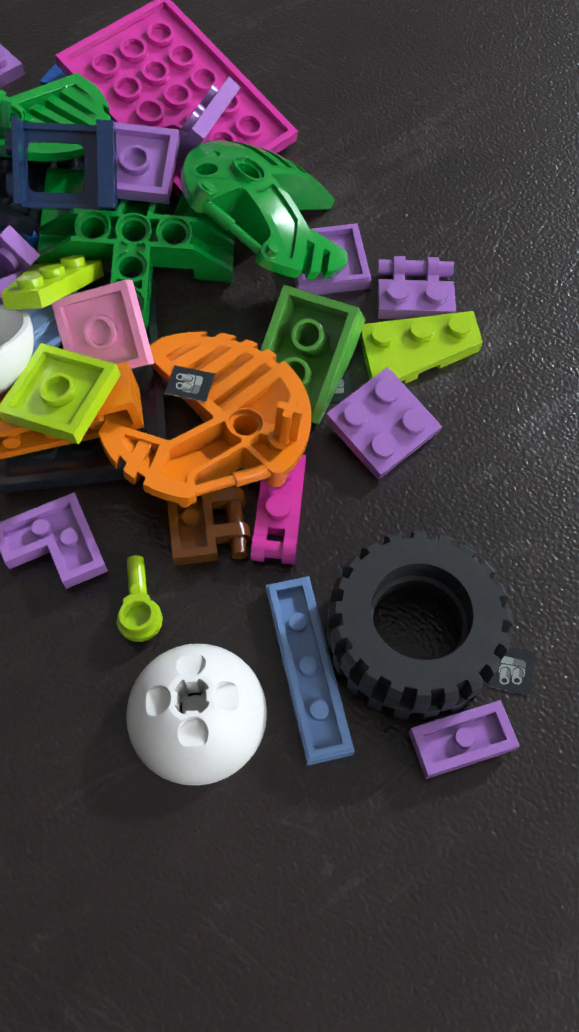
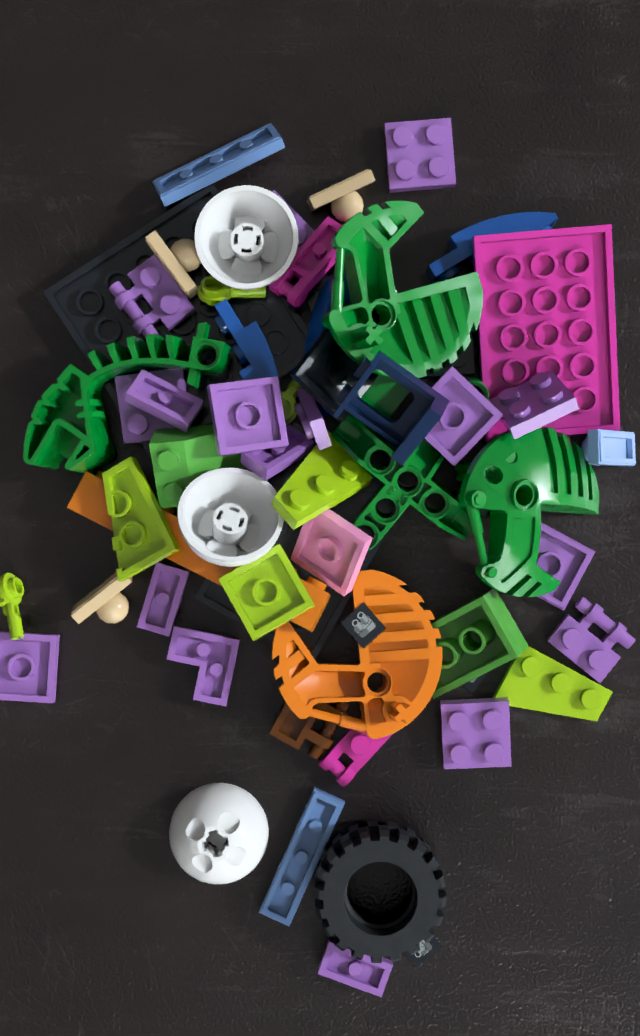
camera: 35 degrees right, 25 degrees up
(139, 615) = (224, 751): lime plate -> none
(298, 142) = (609, 448): none -> light blue tile

